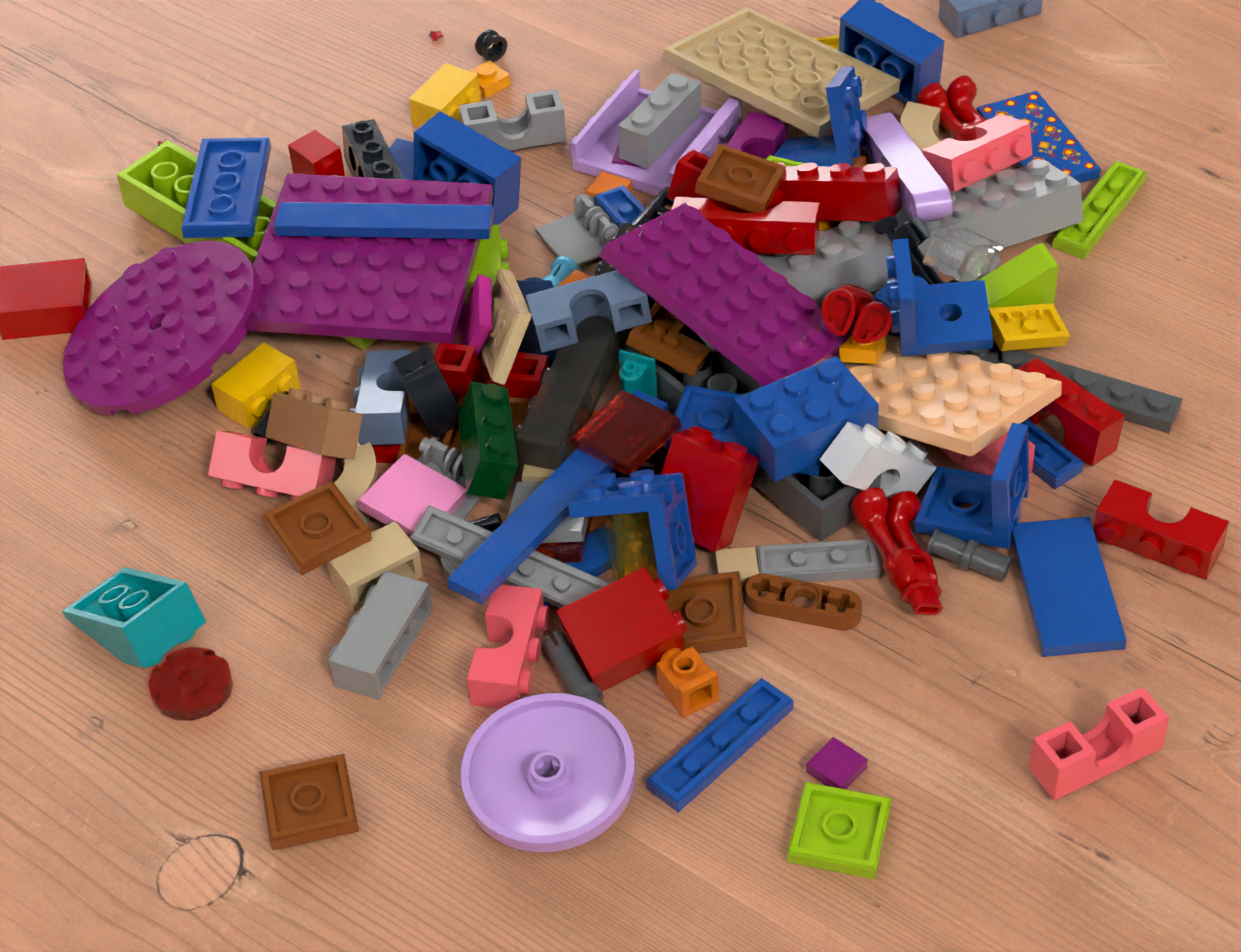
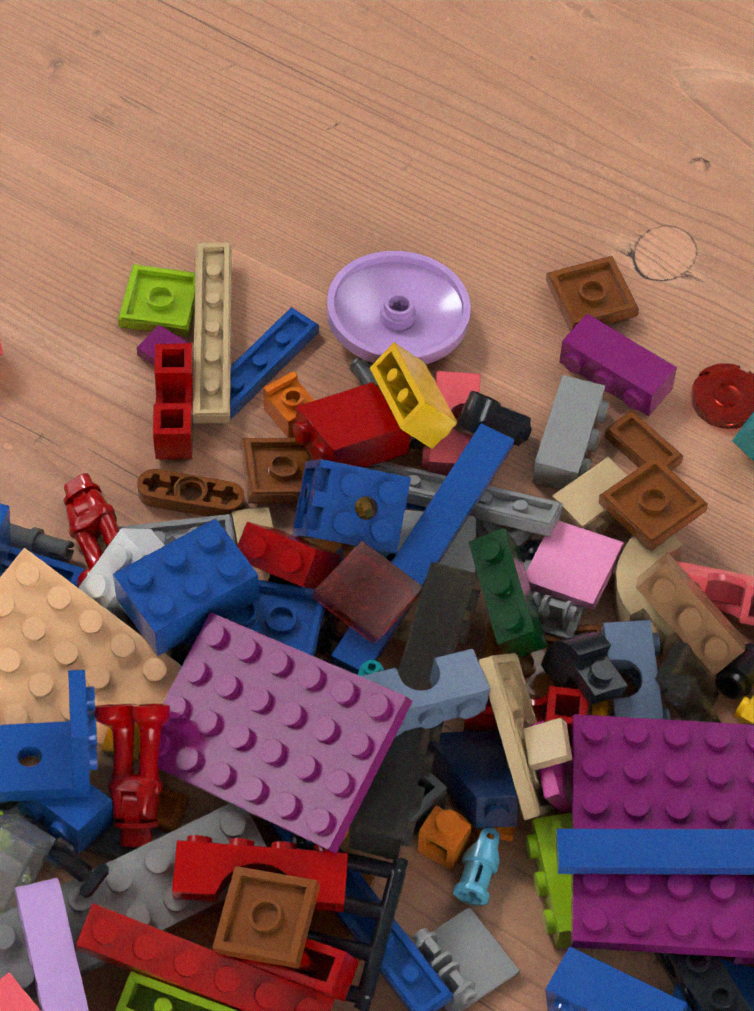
camera: 170 degrees right, 10 degrees up
(301, 633) = (641, 442): none -> dark orange tile
(305, 706) = (618, 363): none -> magenta brick
(338, 370) = (687, 685): none -> clear smoke bracket
(463, 633) = (491, 413): none -> black piece
(480, 298) = (547, 744): none -> tan tile
(549, 630) = (413, 395): none -> yellow brick
(774, 771) = (212, 333): none -> tan tile
(821, 675) = (173, 401): none -> red arch

